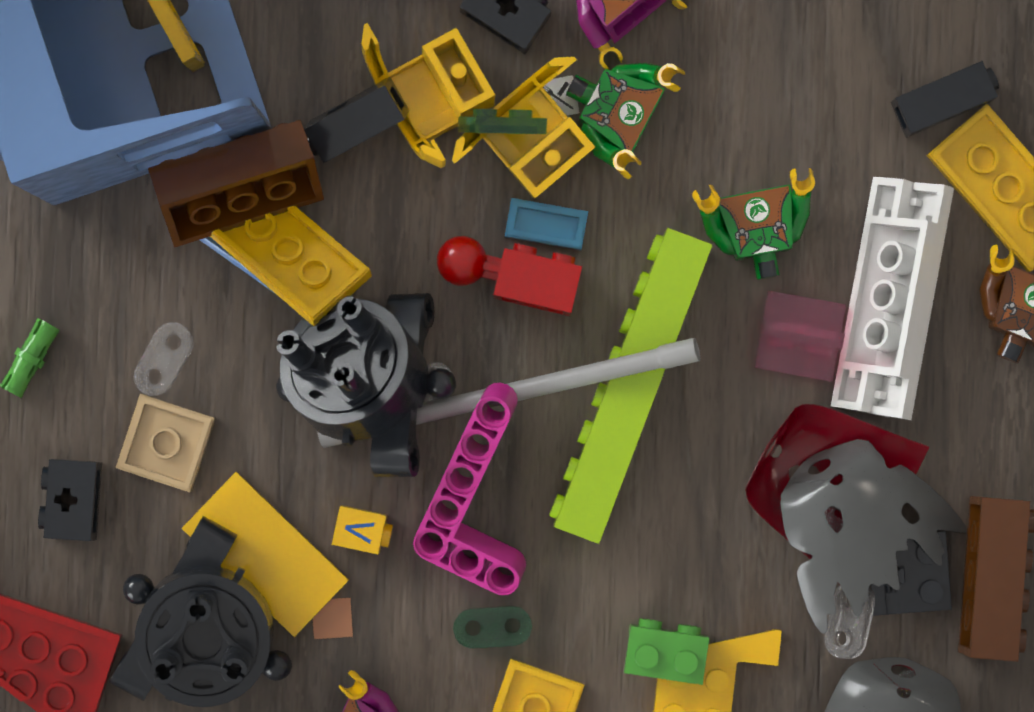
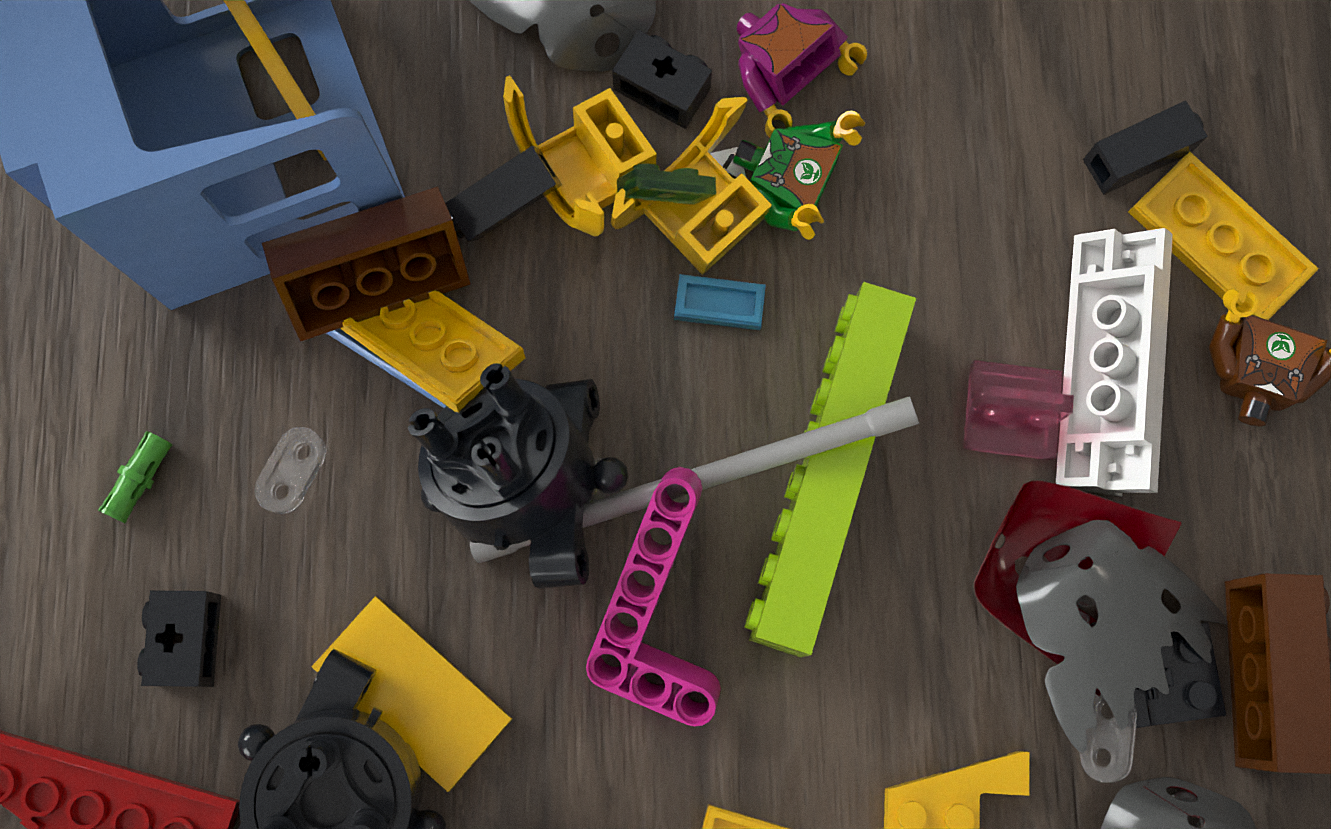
camera: 10 degrees left, 10 degrees down
(165, 443) = (294, 567): tan tile -> none
(334, 620) = (496, 768): nougat sticker -> none
(362, 530) = (524, 657): yellow brick -> none
(492, 627) = (685, 766): clear green plate -> none
(518, 275) = (701, 352): red brick -> none
(666, 652) = (897, 787): bright green bracket -> none
(758, 222) = (958, 283): torso -> none

